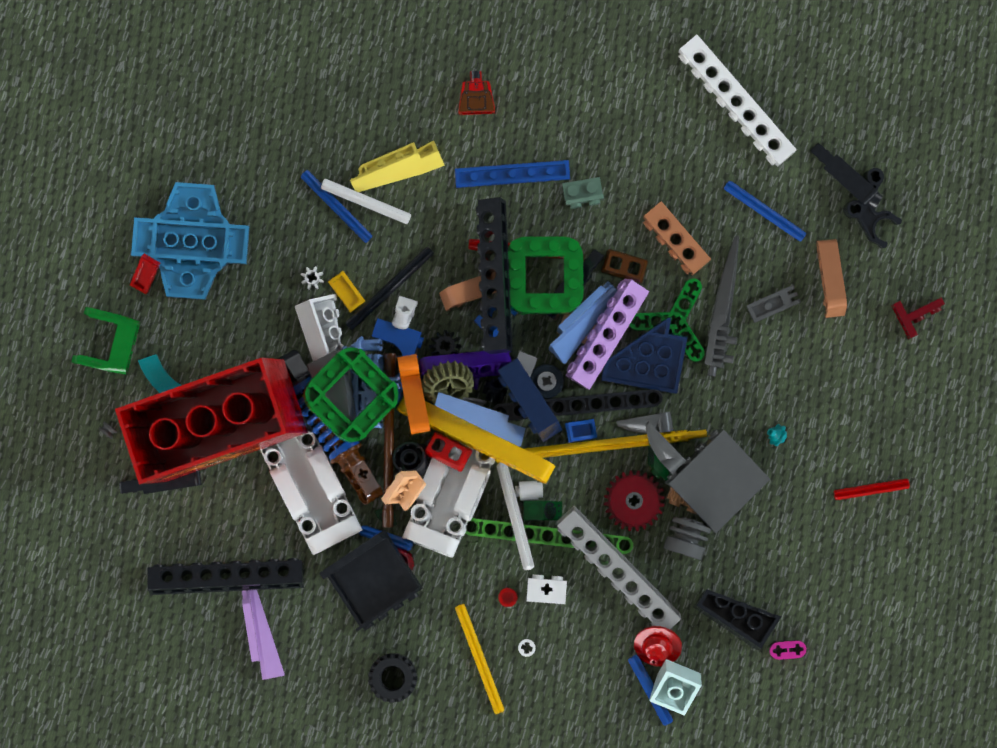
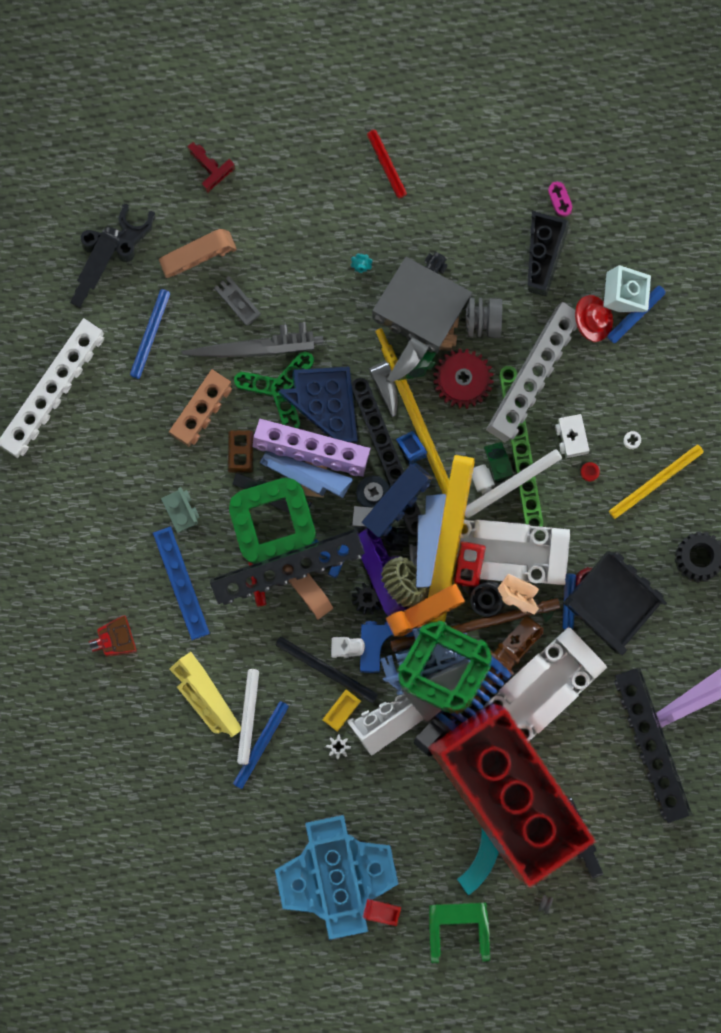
camera: 110 degrees left, 5 degrees down
(756, 507) = (436, 262): none -> black gear

